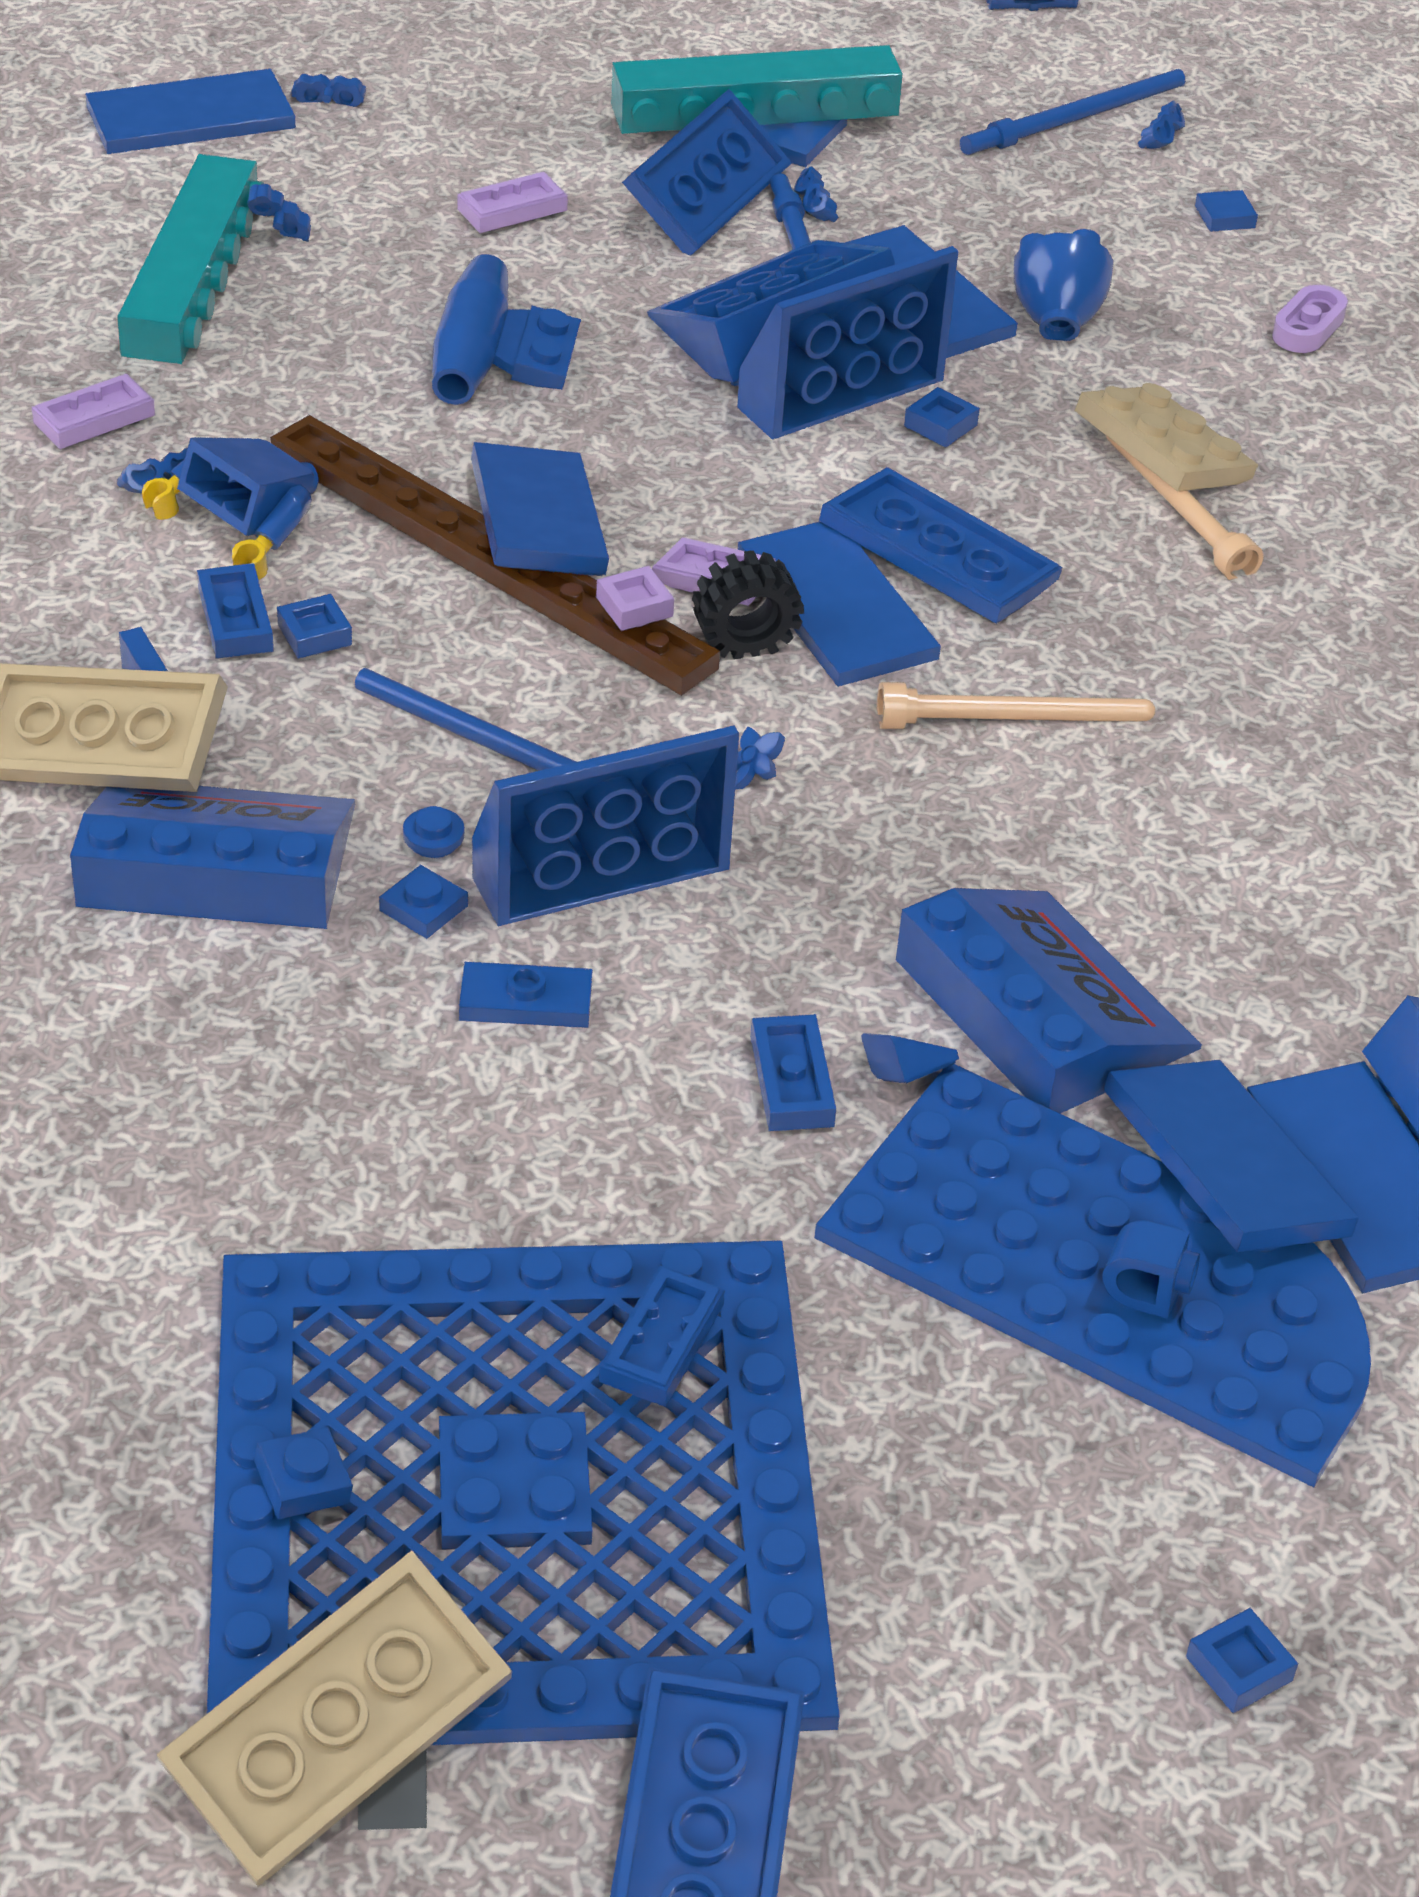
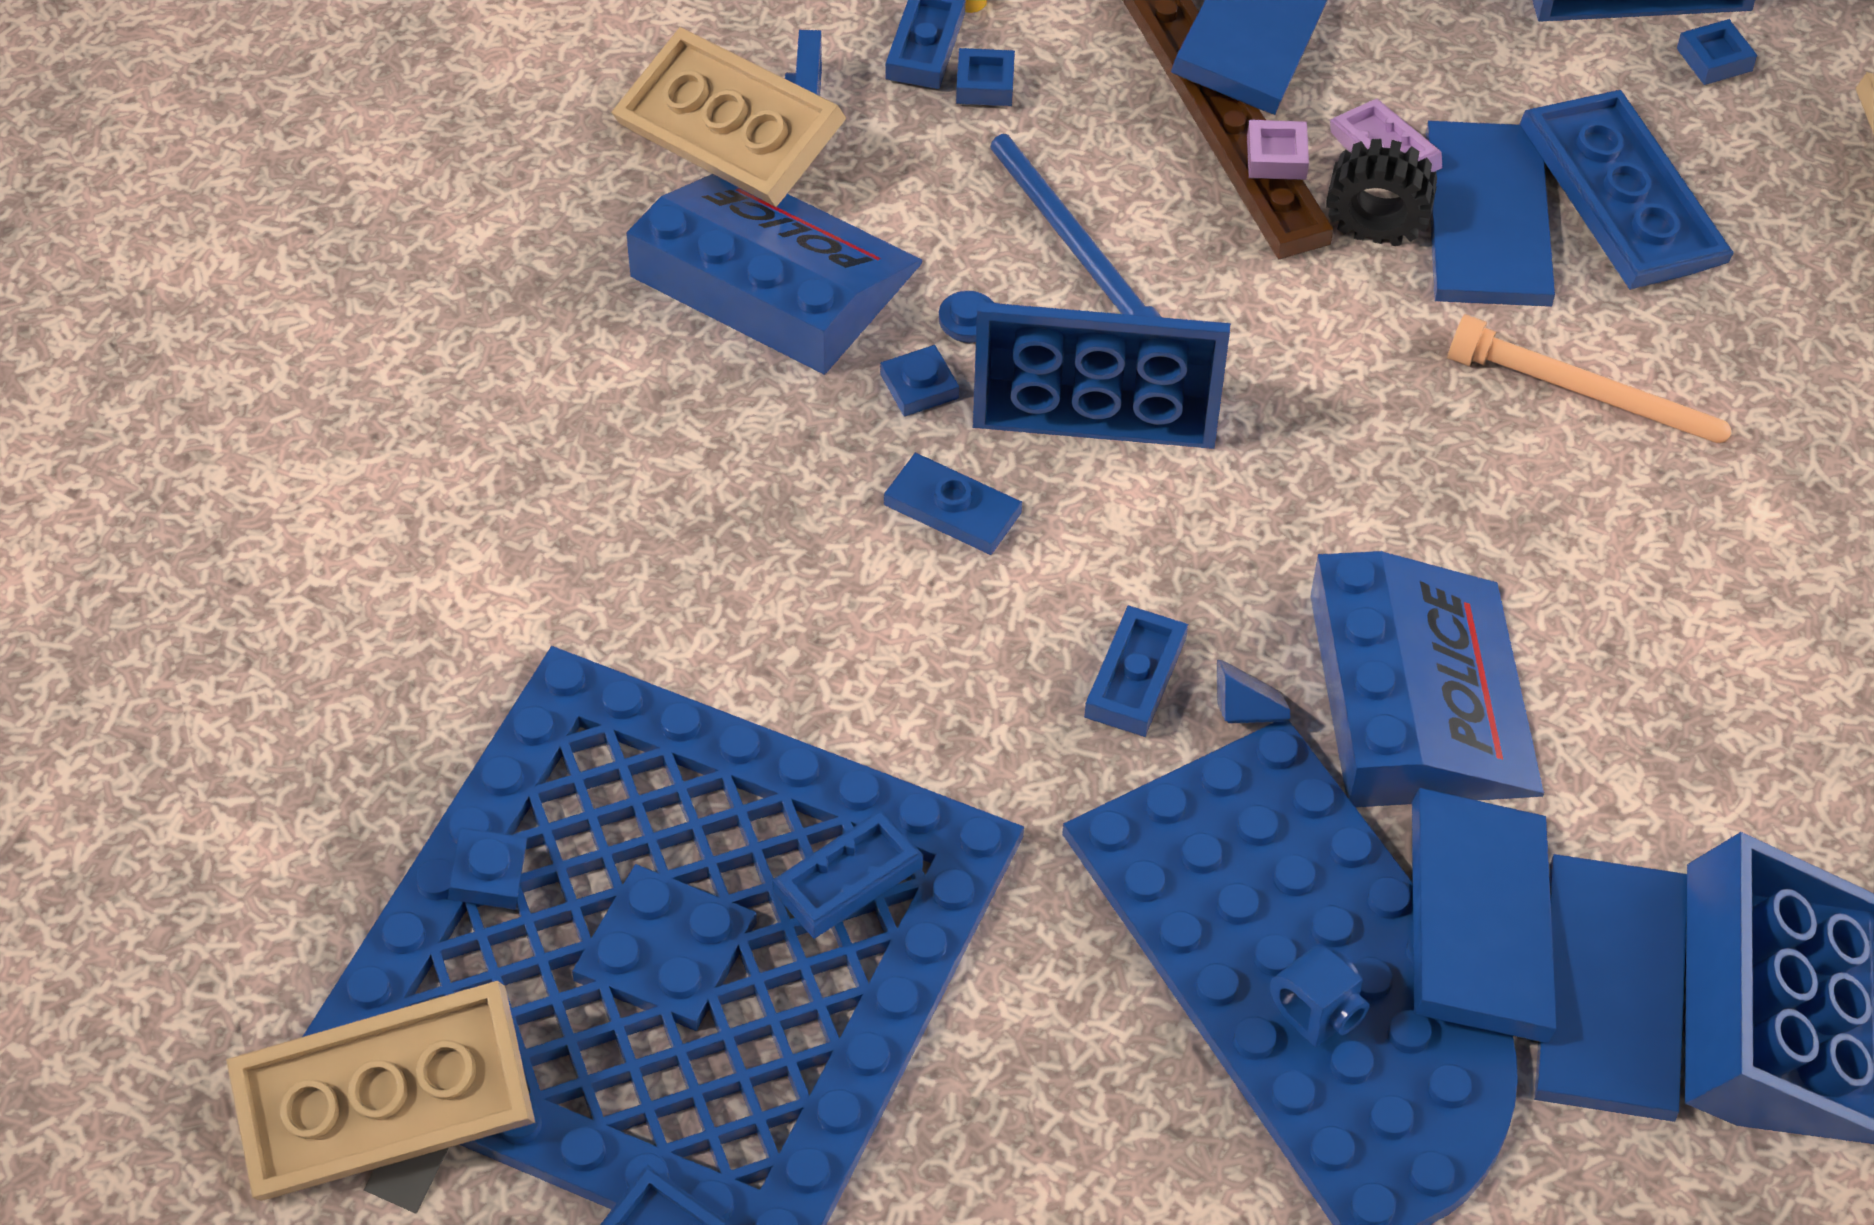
camera: 30 degrees right, 10 degrees up
(757, 756) = (1302, 346): blue plant -> none

